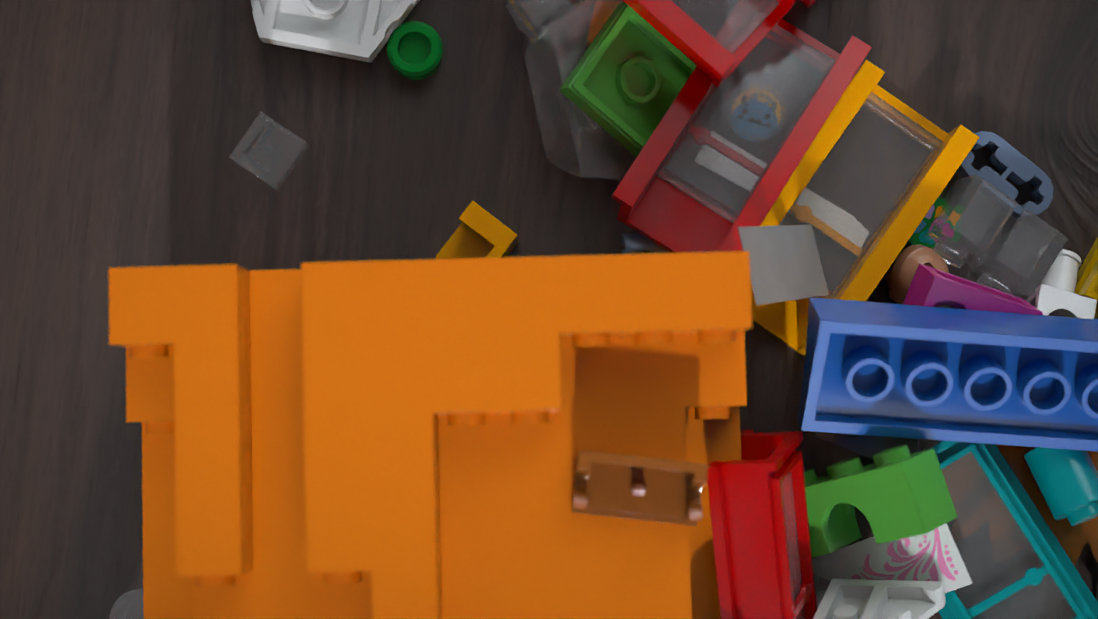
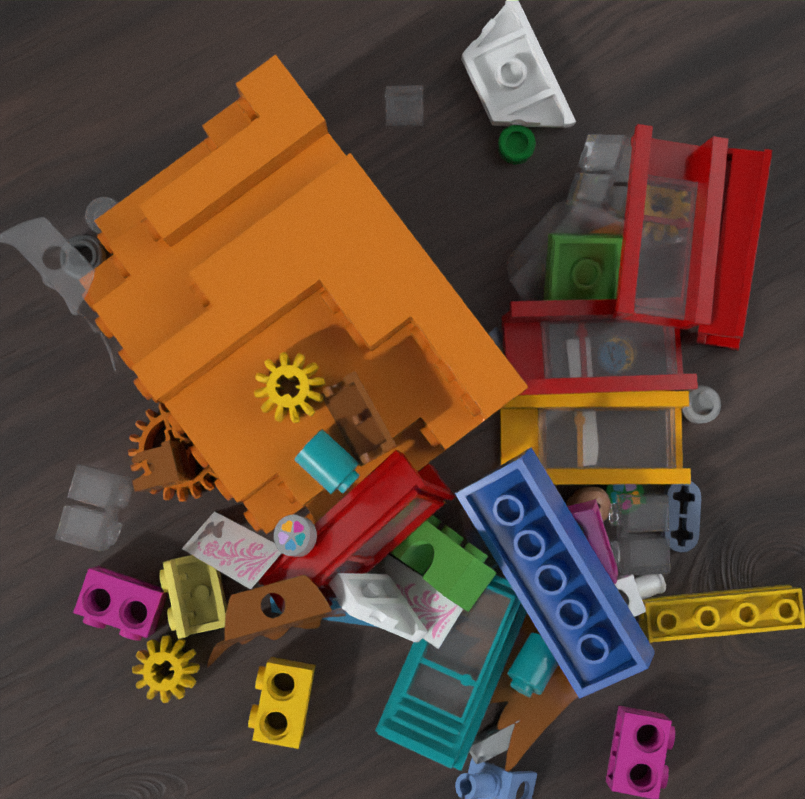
camera: 60 degrees right, 0 degrees up
(479, 236) = (440, 250): light orange panel -> none
(556, 558) = (292, 373): none -> yellow gear
(667, 563) = (328, 463): none -> teal brick
(783, 263) = (540, 420): light grey sticker -> none
(892, 53) = (703, 405): none -> light grey tile

